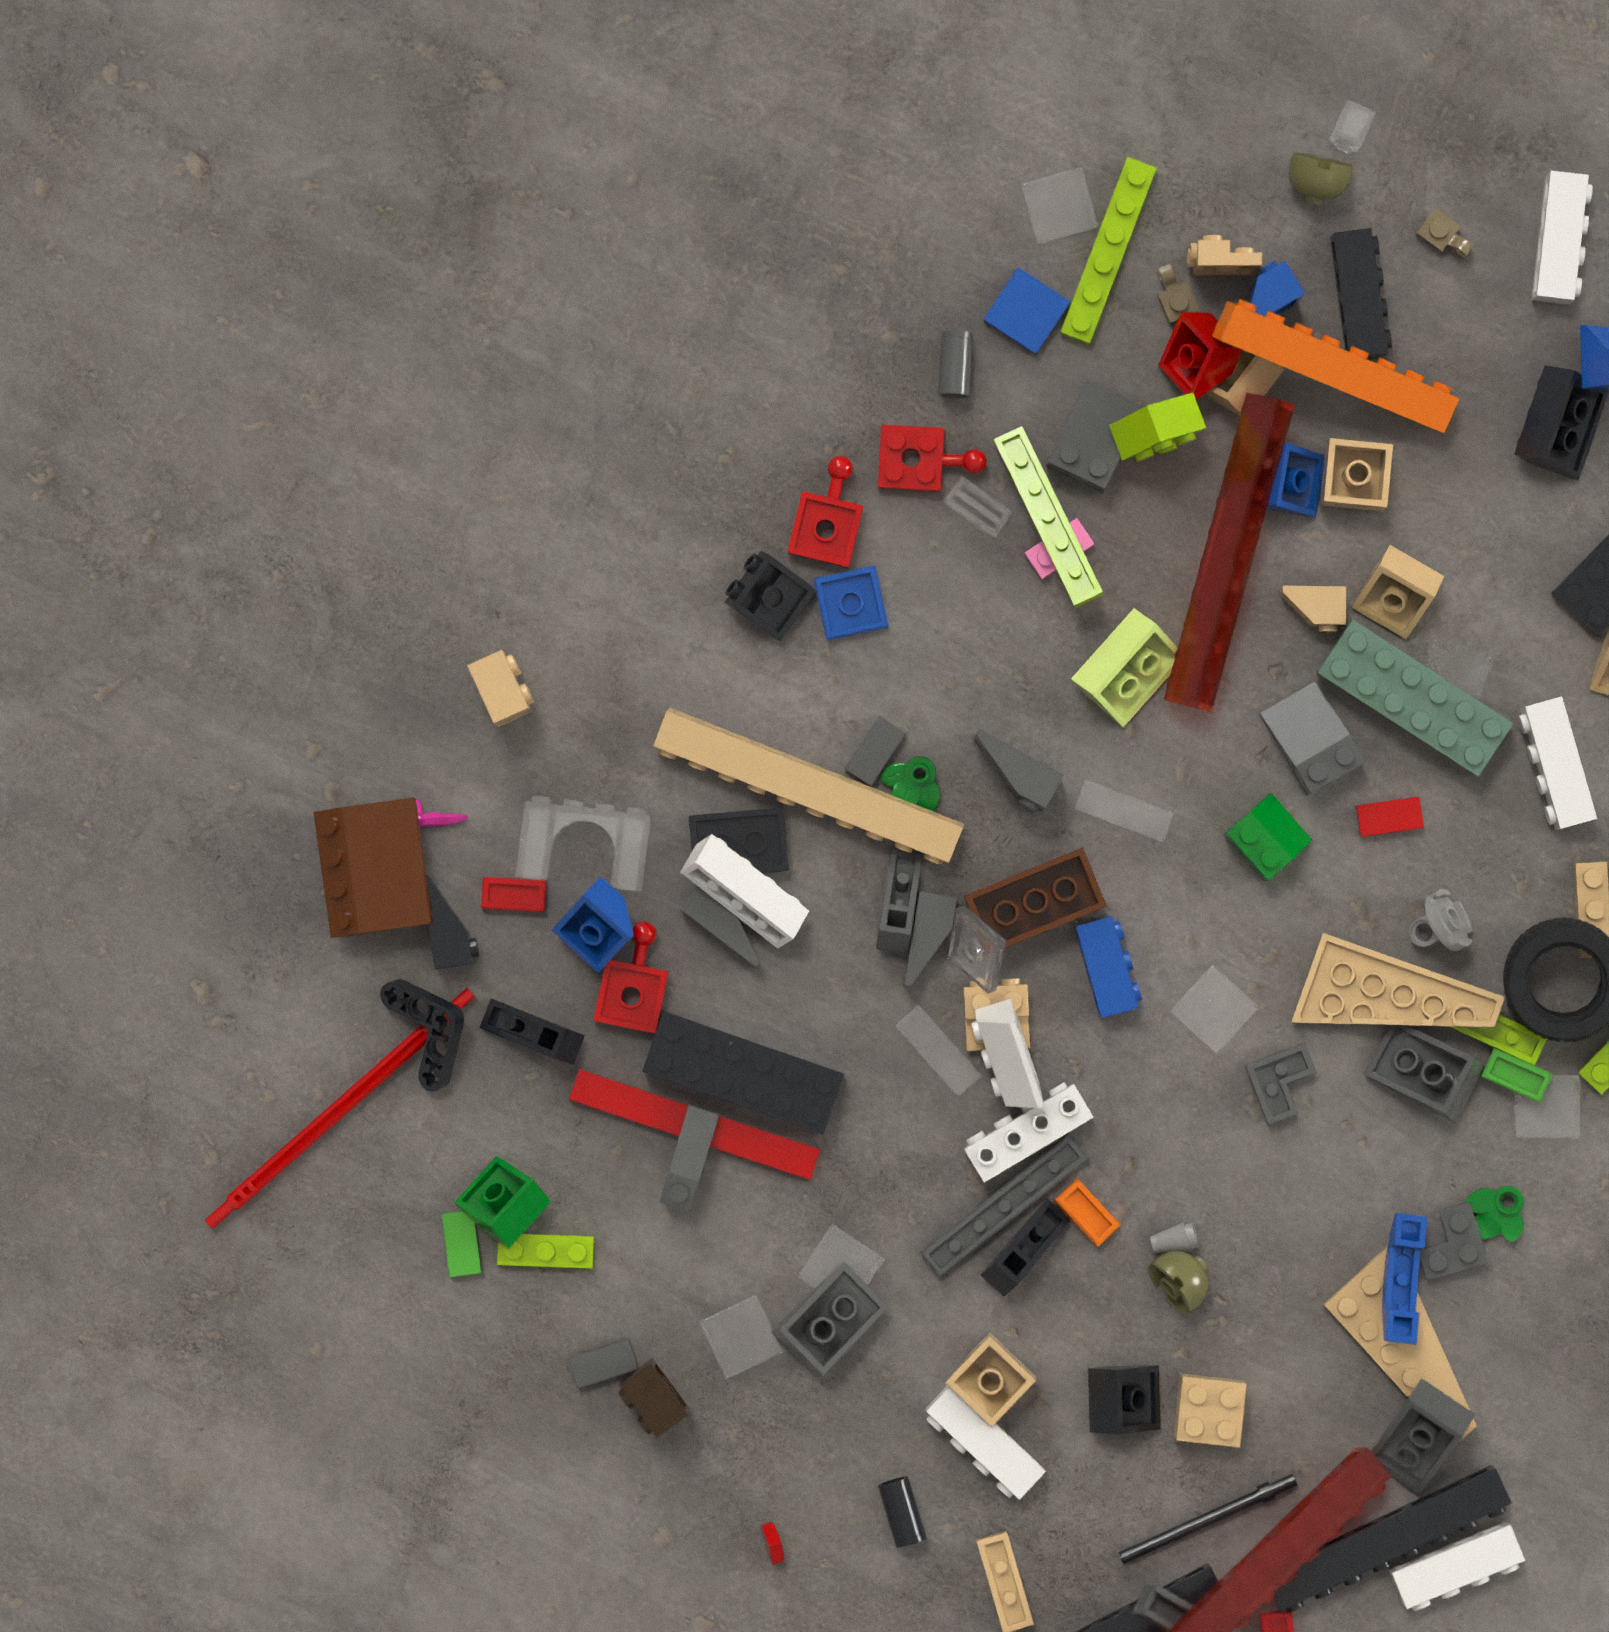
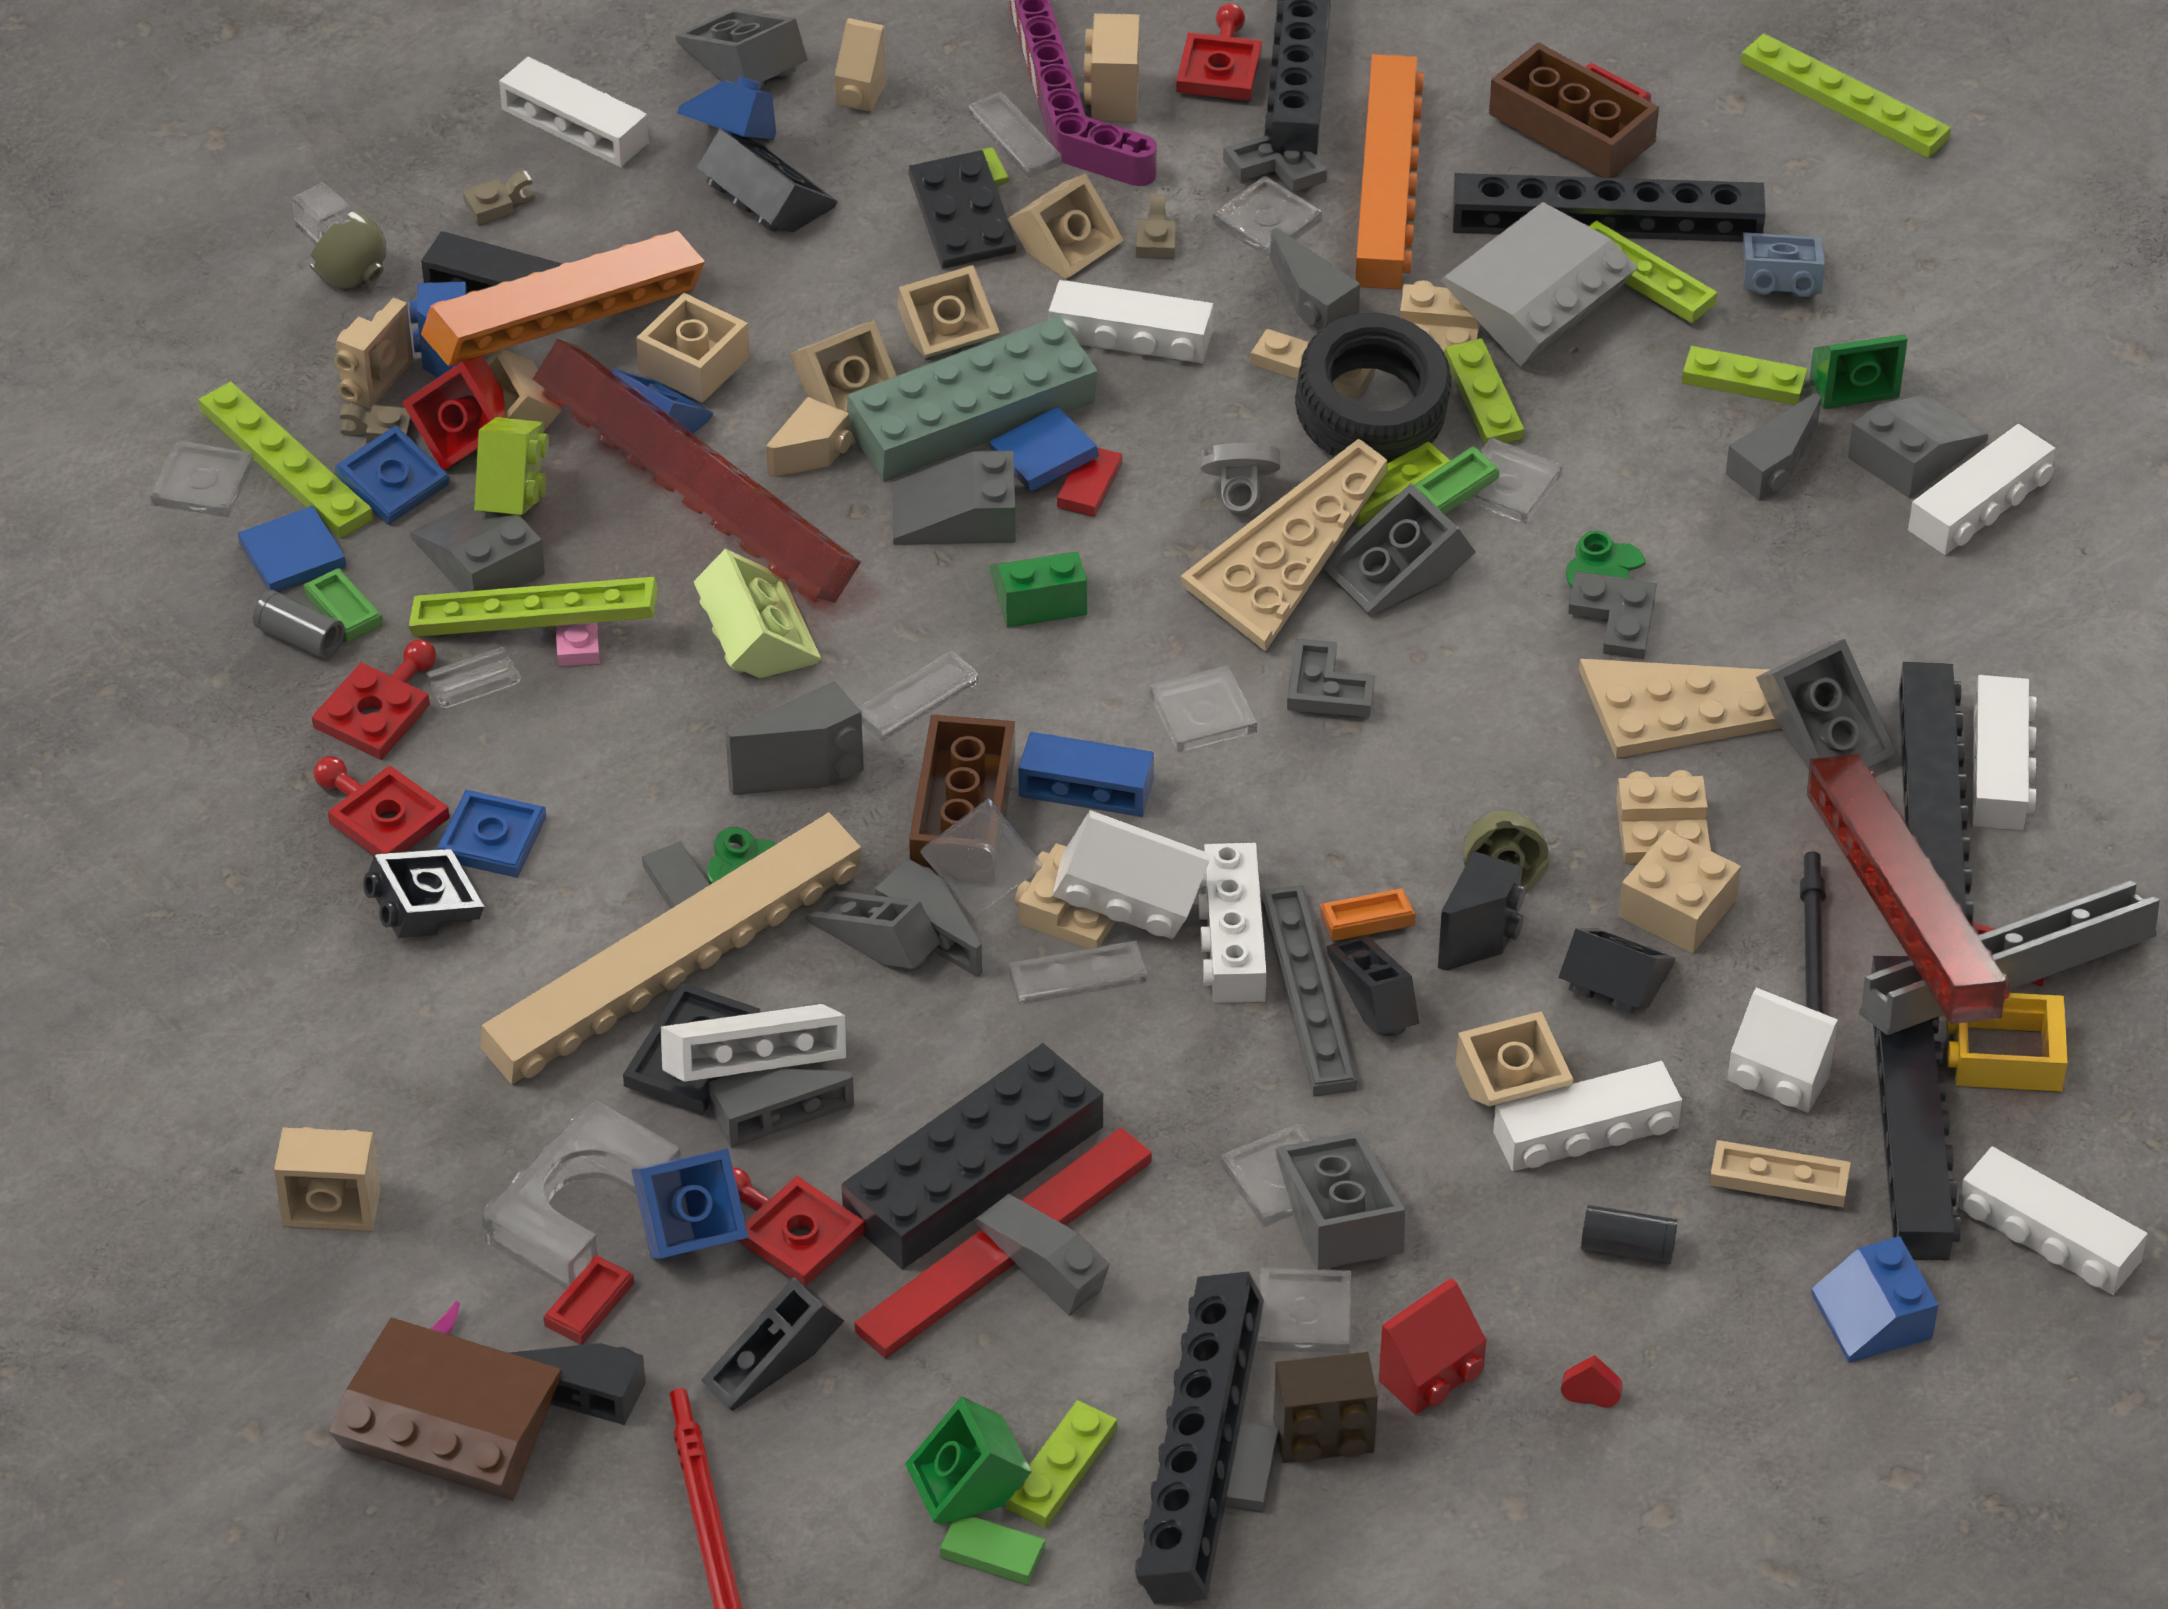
camera: 60 degrees left, 40 degrees down
(435, 1021) = (683, 1429): black beam -> none
(617, 1334) = (1200, 1439): none -> black brick
(736, 1439) = (1431, 1348): none -> red slope
(996, 377) = (342, 600): none -> bright green tile
(1095, 1544) = (1783, 1050): none -> white slope
(1114, 1294) = (1481, 912): none -> black slope
(1129, 336) = (392, 475): none -> blue tile
(1178, 1237) = (1449, 843): light grey cone -> none
(1275, 1366) = (1658, 804): none -> tan plate
(1397, 771) = (1046, 448): none -> blue tile
(1401, 1278) = (1585, 641): blue slope -> none
(1486, 635) = (946, 312): none -> tan slope

